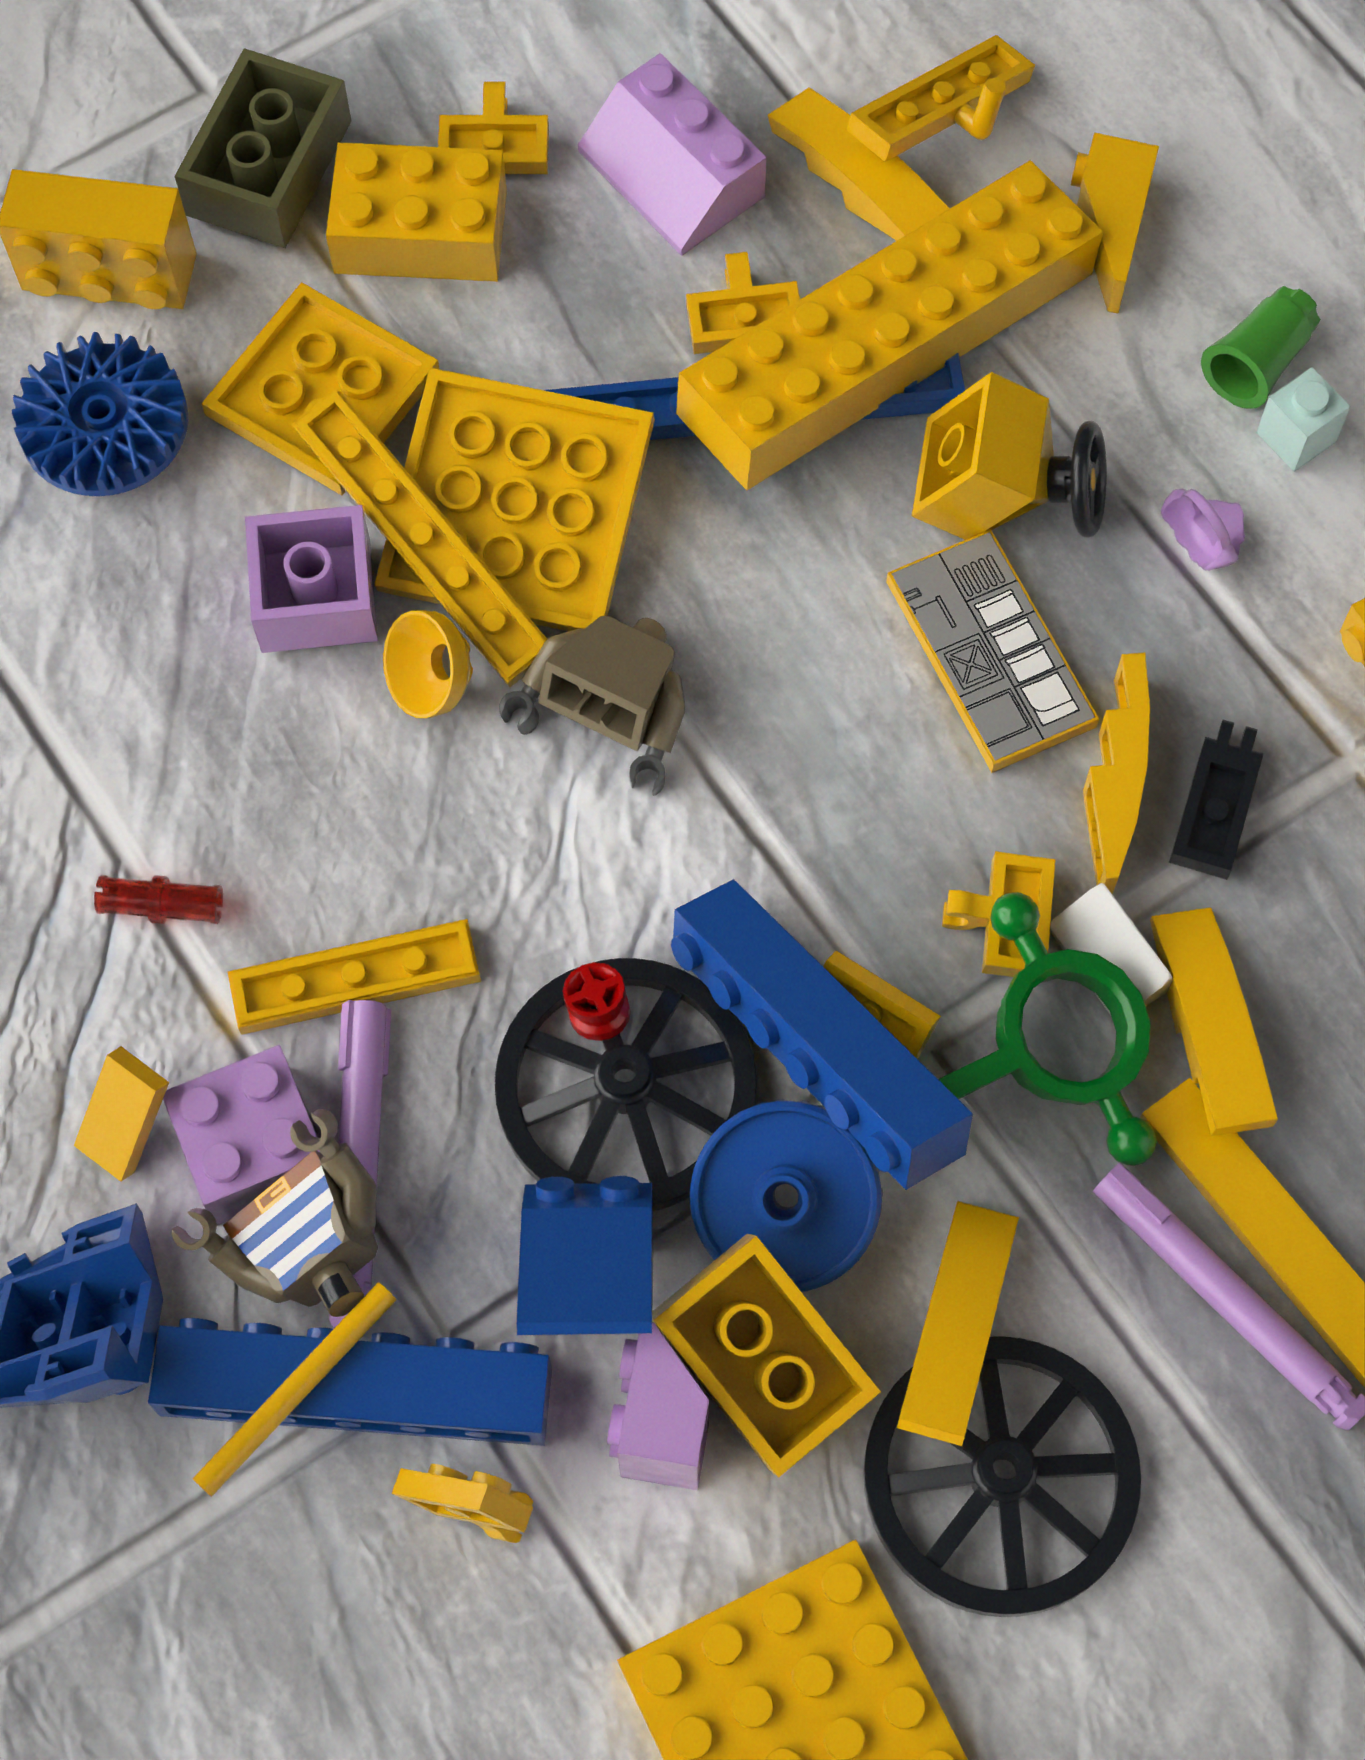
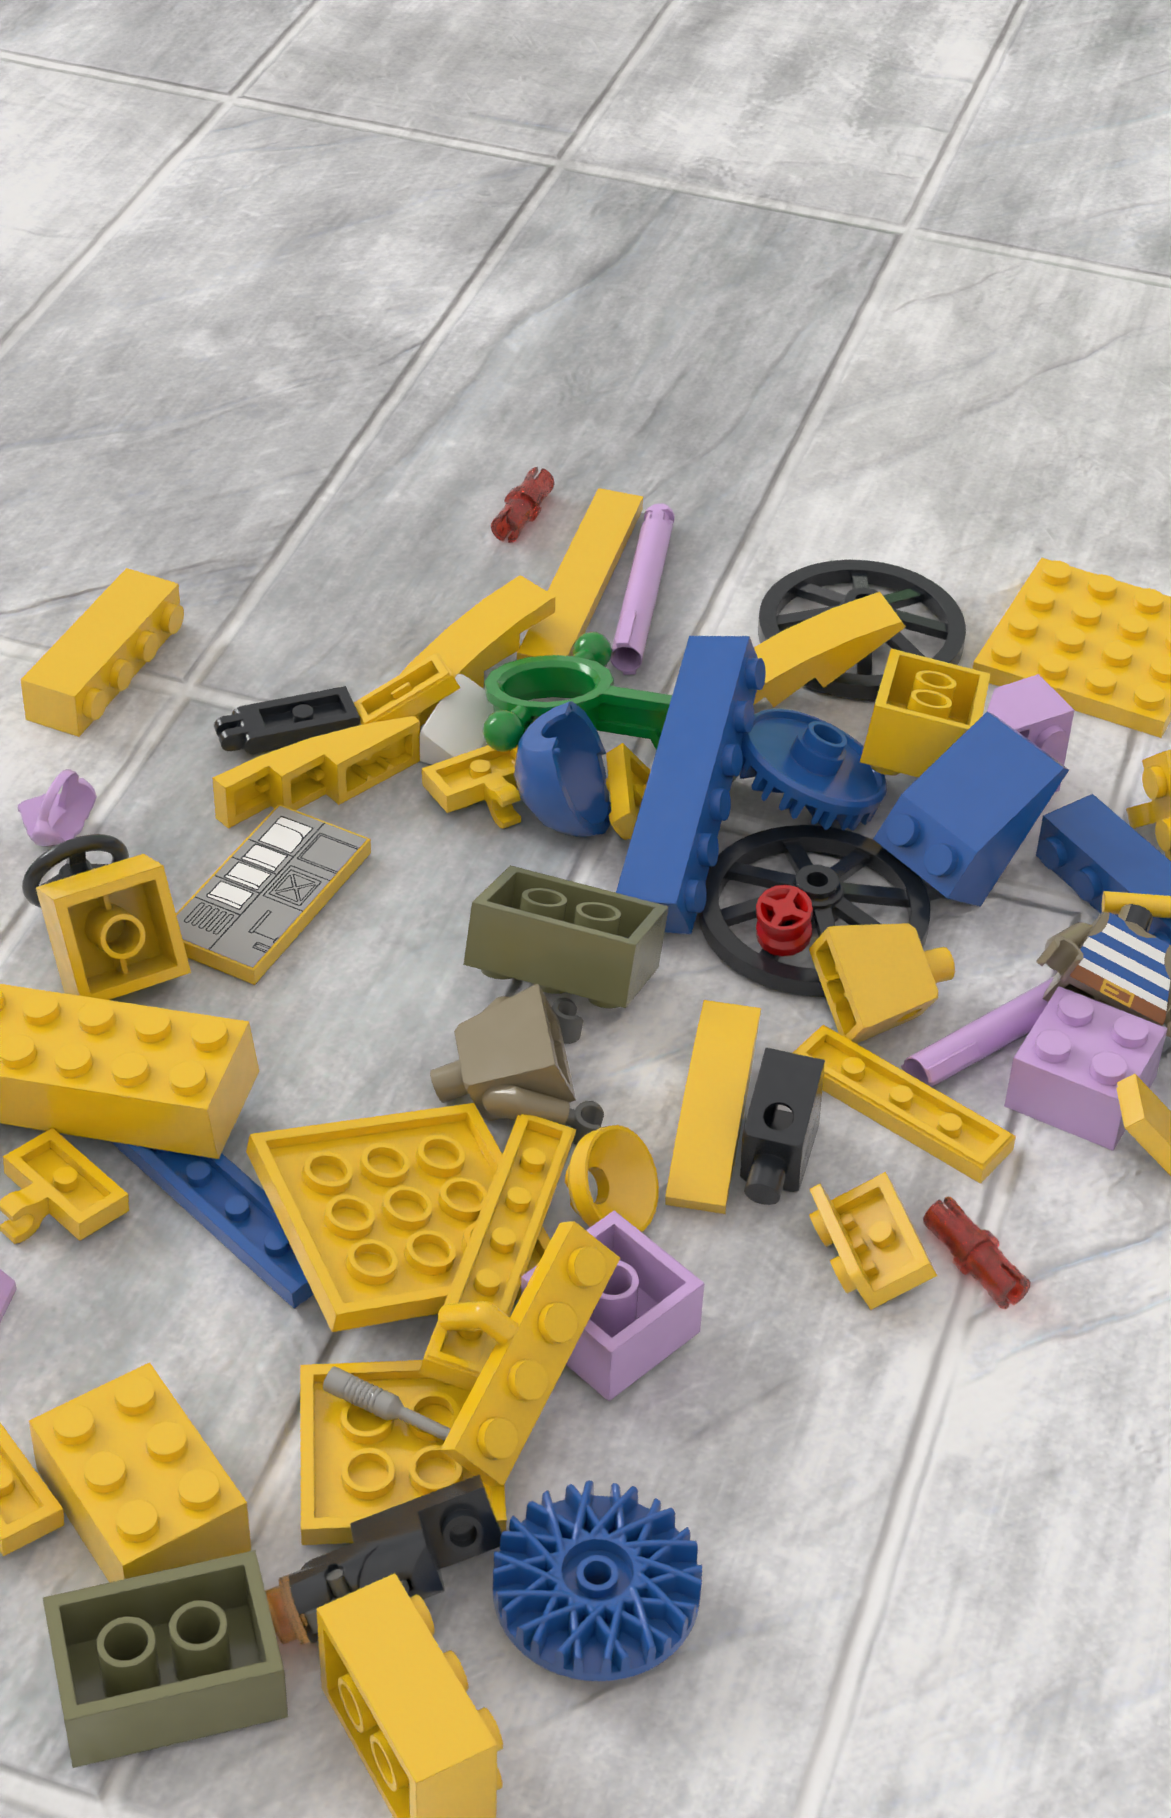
camera: 130 degrees left, 25 degrees down
(219, 297) = (403, 1540): none -> black plate
(229, 817) = (873, 1240): none -> yellow bracket
(281, 454) = (528, 1351): none -> yellow plate
(349, 381) = (378, 1401): none -> light grey piece
(368, 811) = (779, 1141): none -> black torso
(457, 811) = (713, 1107): none -> yellow slope
(473, 1036) = (877, 976): none -> yellow torso
(715, 804) = (565, 937): none -> olive brick
(931, 948) = (564, 772): none -> blue cylinder
(1166, 940) = (408, 692): none -> yellow tile

